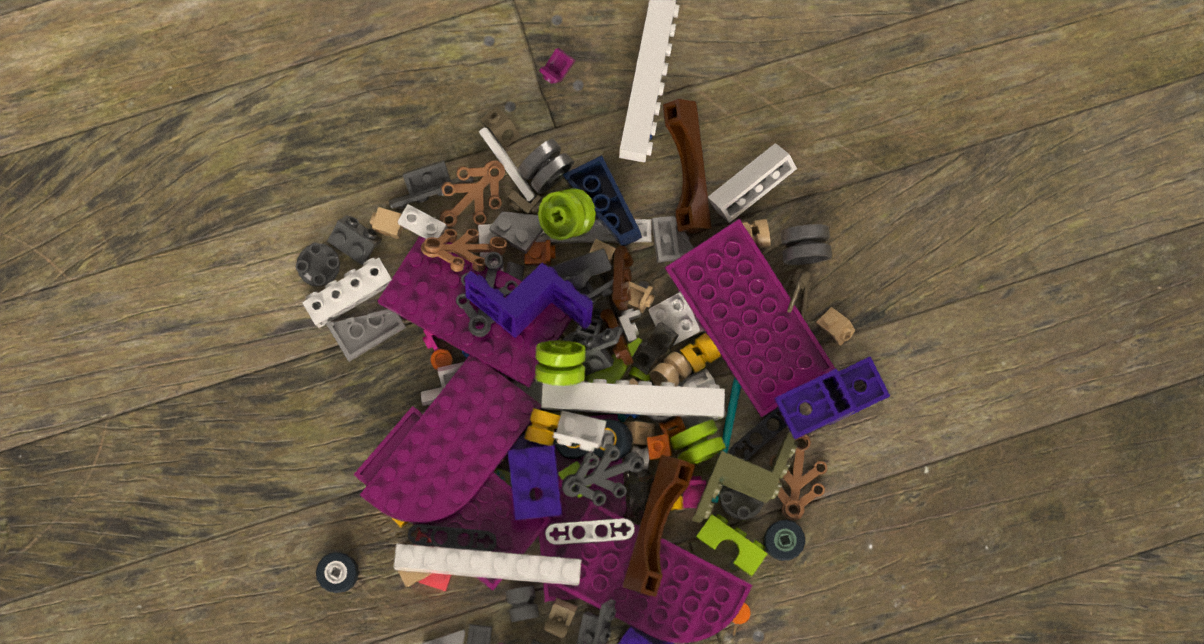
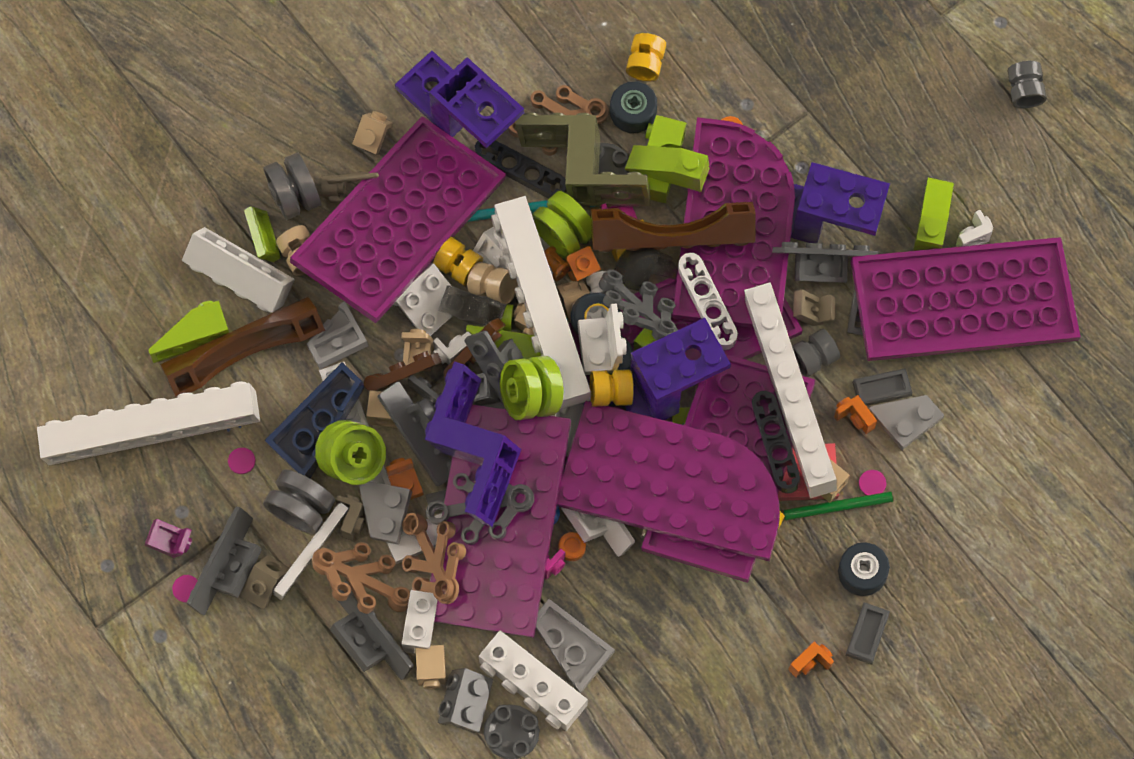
camera: 115 degrees left, 10 degrees down
(285, 501) = (805, 662): none -> orange bracket
(290, 557) = (867, 633): none -> dark grey tile
(395, 581) = (839, 505): none -> green bar
(405, 609) = (872, 482): none -> dark pink piece
(458, 619) = (860, 414): none -> orange bracket
(517, 70) = (183, 586): none -> dark pink piece
(521, 103) = (228, 564): none -> dark grey bracket
(601, 140) = (241, 460): none -> dark pink piece
(716, 137) = (193, 330): none -> lime slope
(716, 544) = (670, 165): none -> lime slope
(778, 211) = (262, 234): none -> lime tile
(816, 563) = (646, 57): none -> yellow wheel

